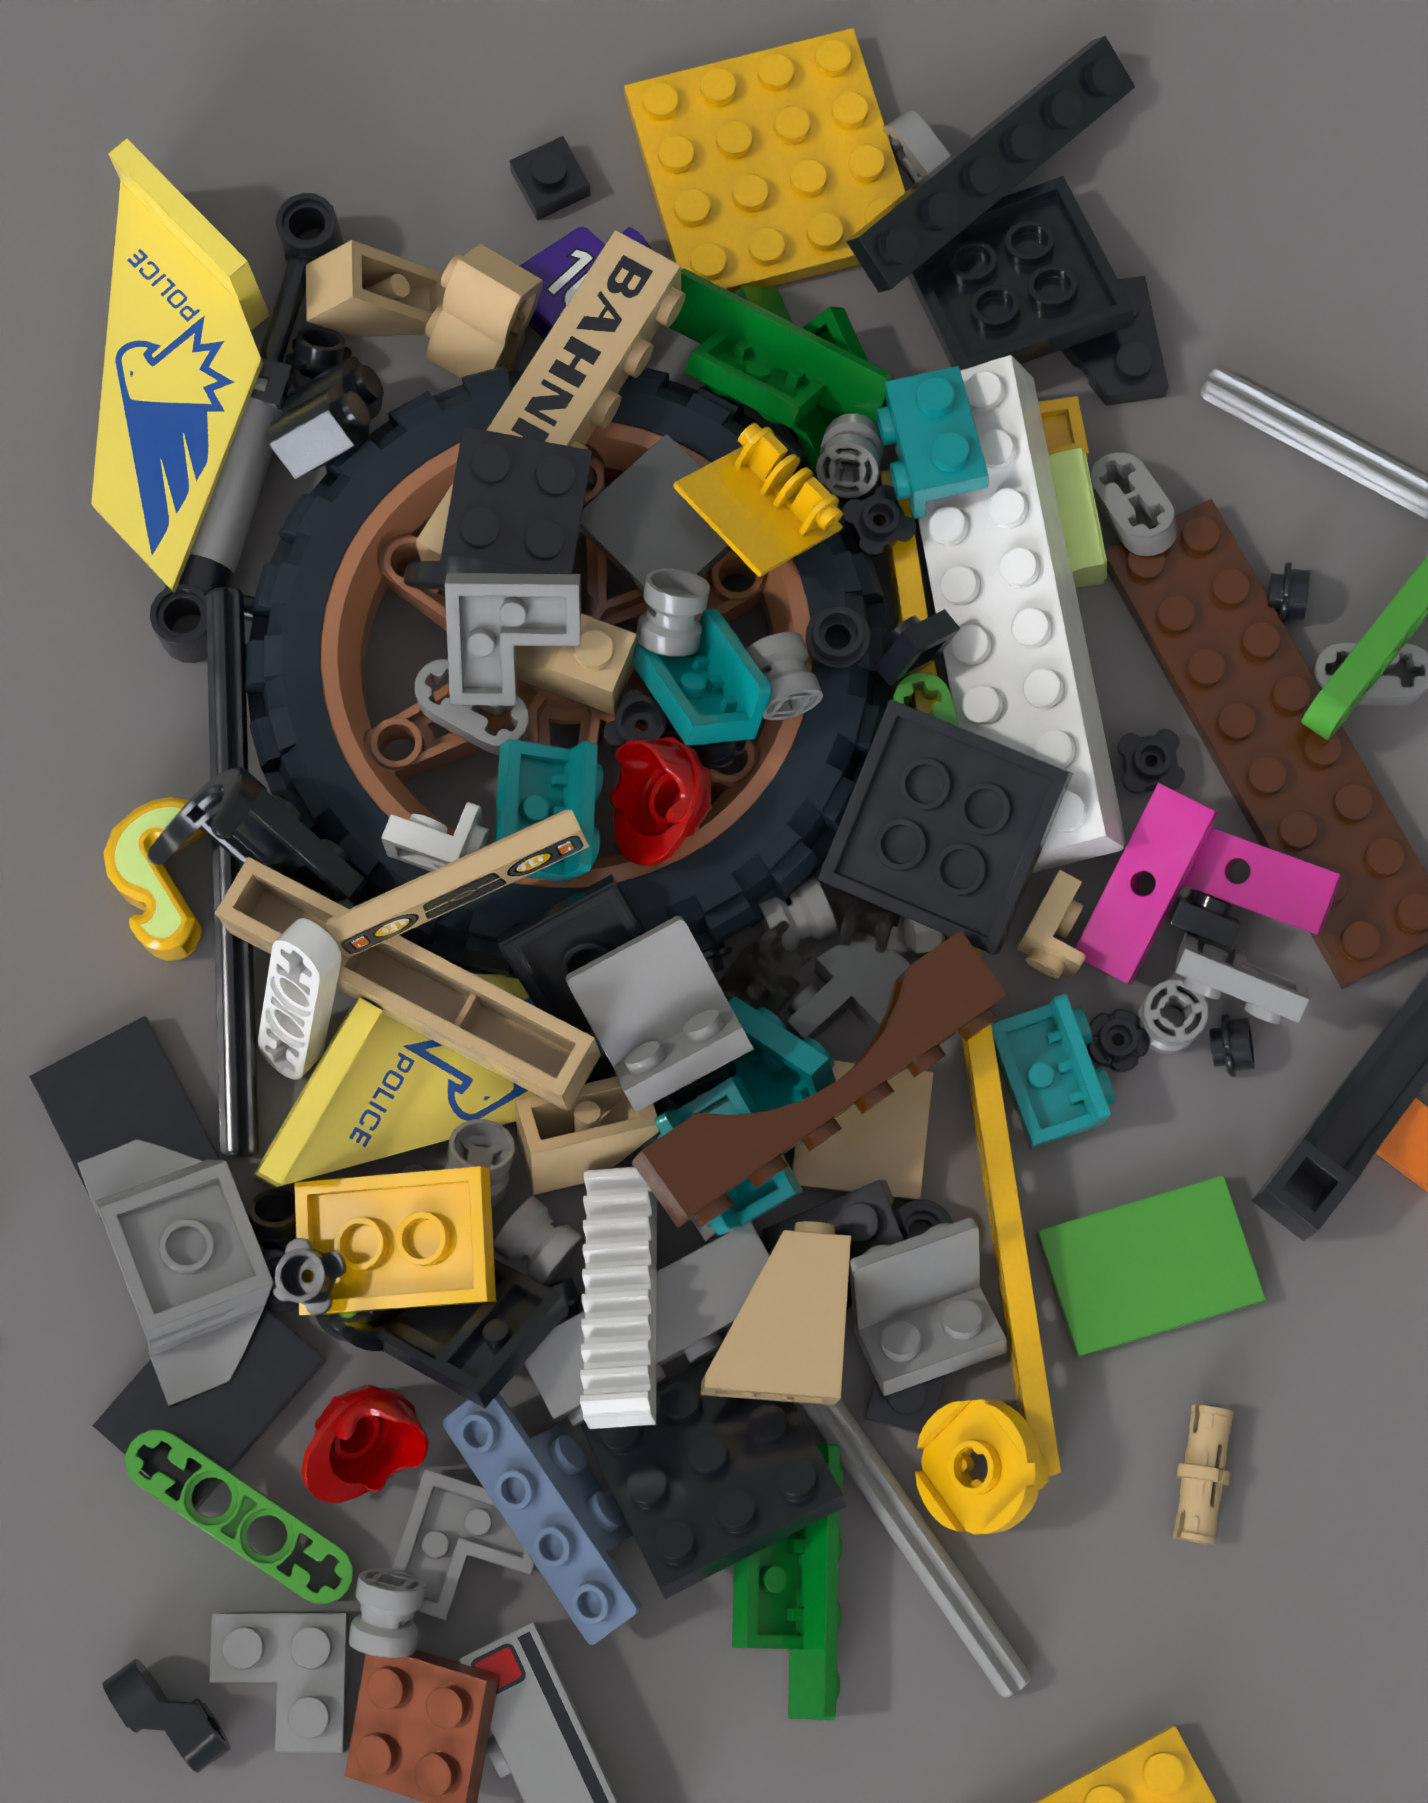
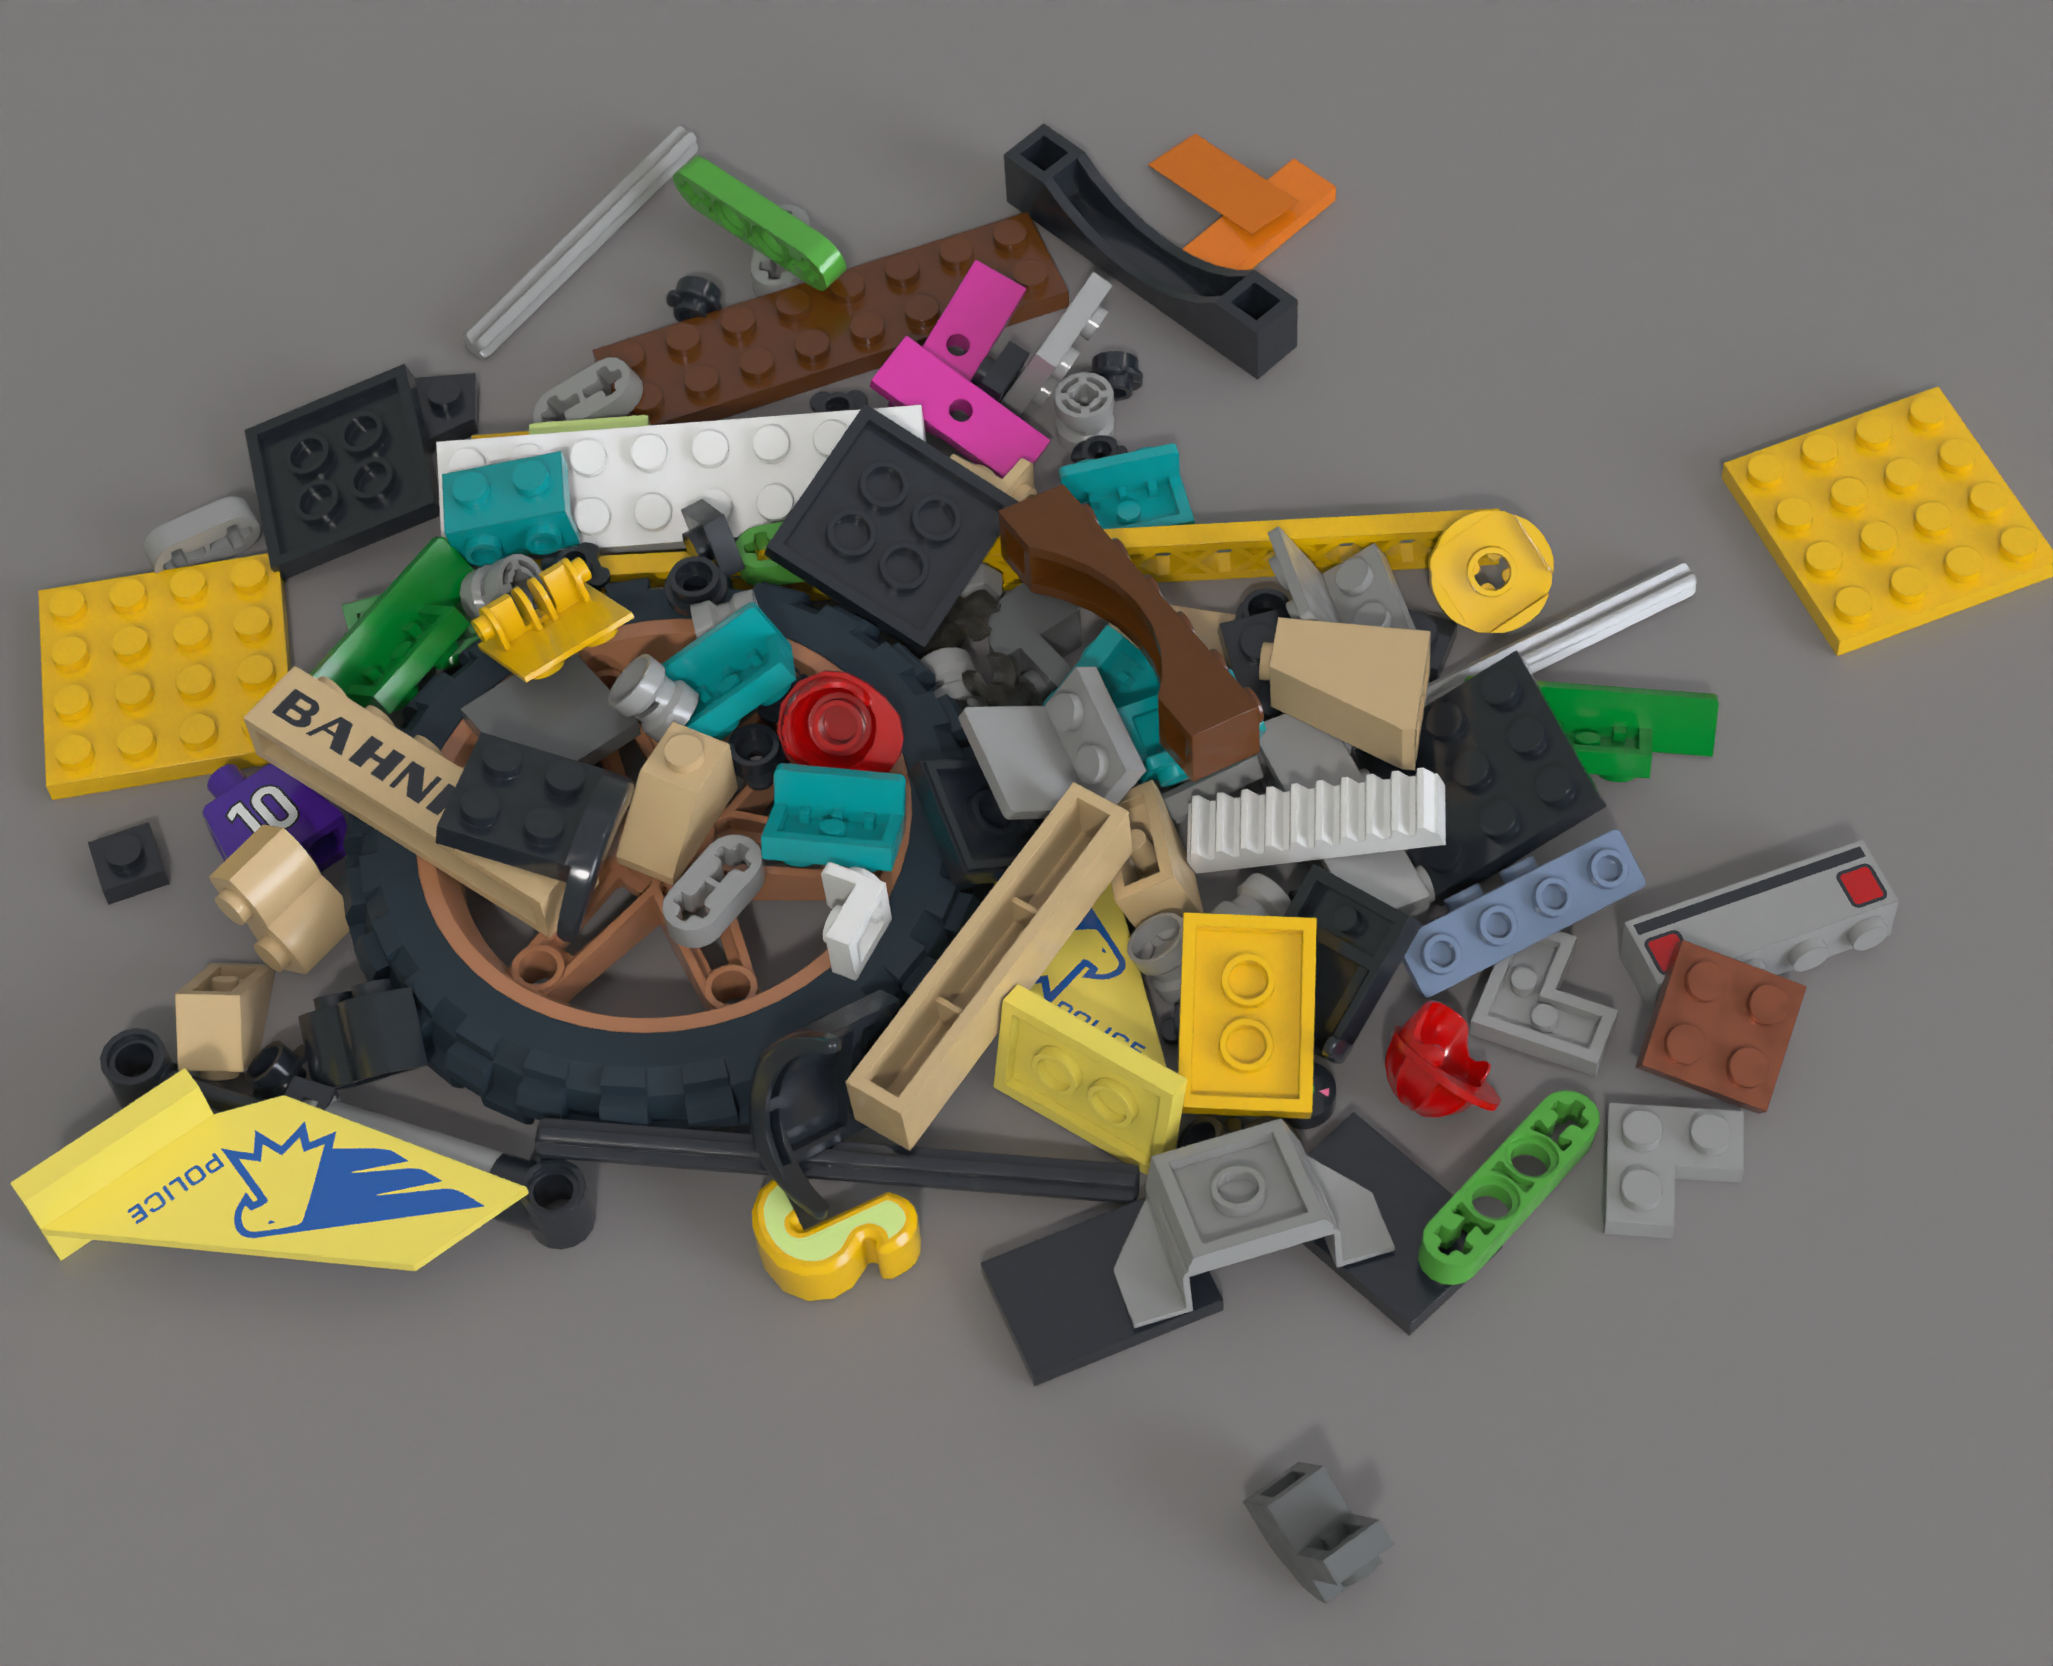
camera: 80 degrees left, 20 degrees down
(187, 1724) = (1694, 1283): black piece -> none
(290, 1271) = (1272, 1069): black plate -> none
(299, 998) = (1009, 1049): white beam -> none
(387, 1613) = (1611, 1039): light grey wheel -> none
(457, 883) = (909, 870): tan tile -> none
(494, 615) = (640, 818): light grey plate -> none
(990, 164) = (224, 474): black plate -> none
(1150, 1266) = (1311, 449): bright green tile -> none
(1203, 1474) = (1502, 428): tan pin -> none

